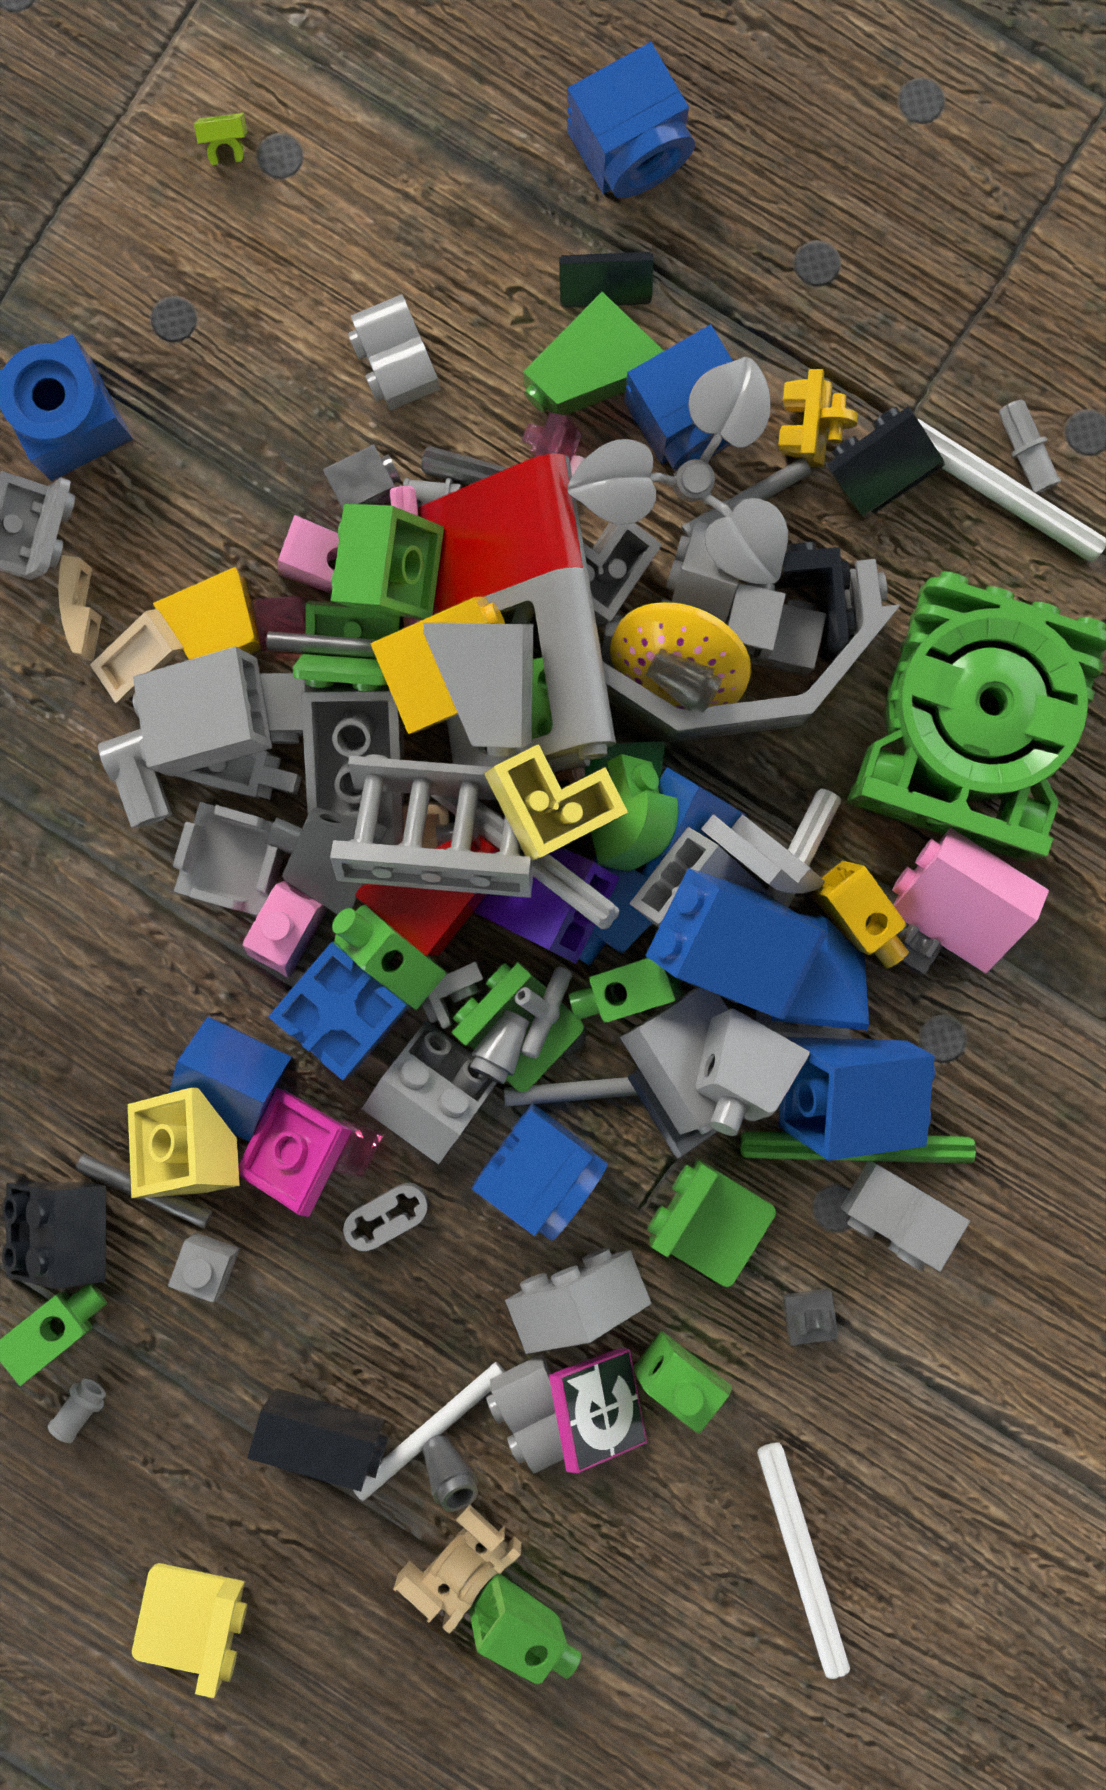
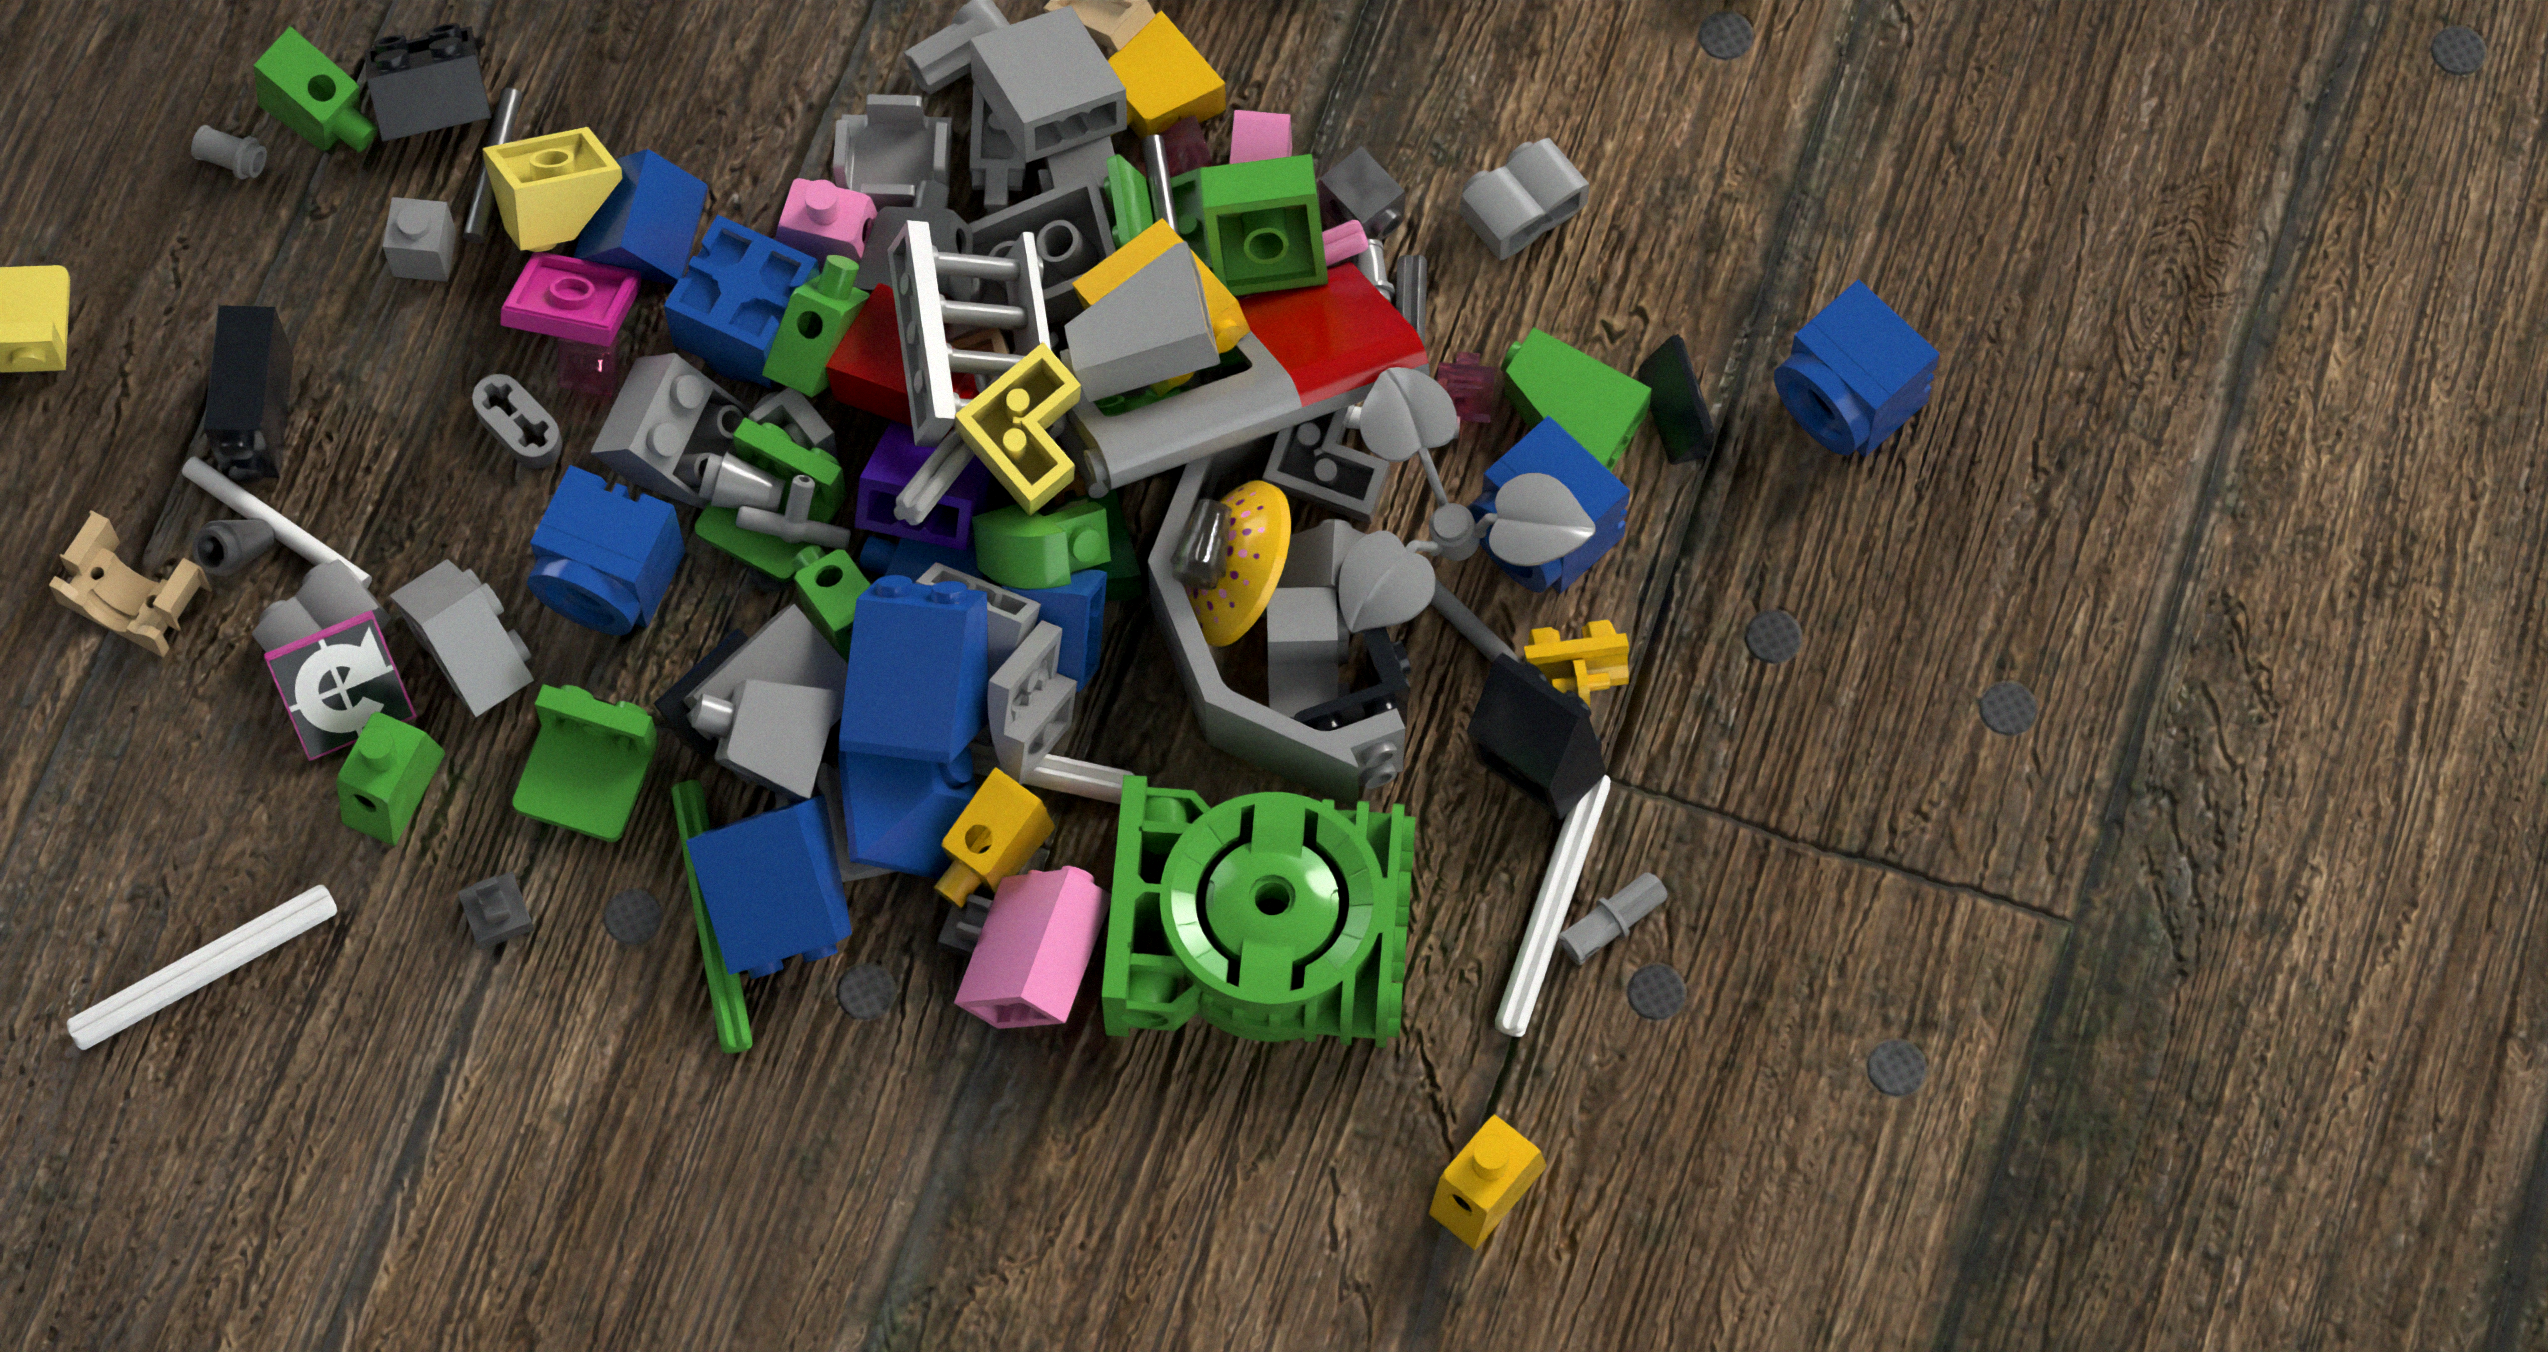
camera: 70 degrees right, 20 degrees down
(520, 1632) = (63, 661): bright green torso -> none
(570, 1091) = (705, 579): light grey bar -> none
(916, 1223) = (639, 971): light grey brick -> none

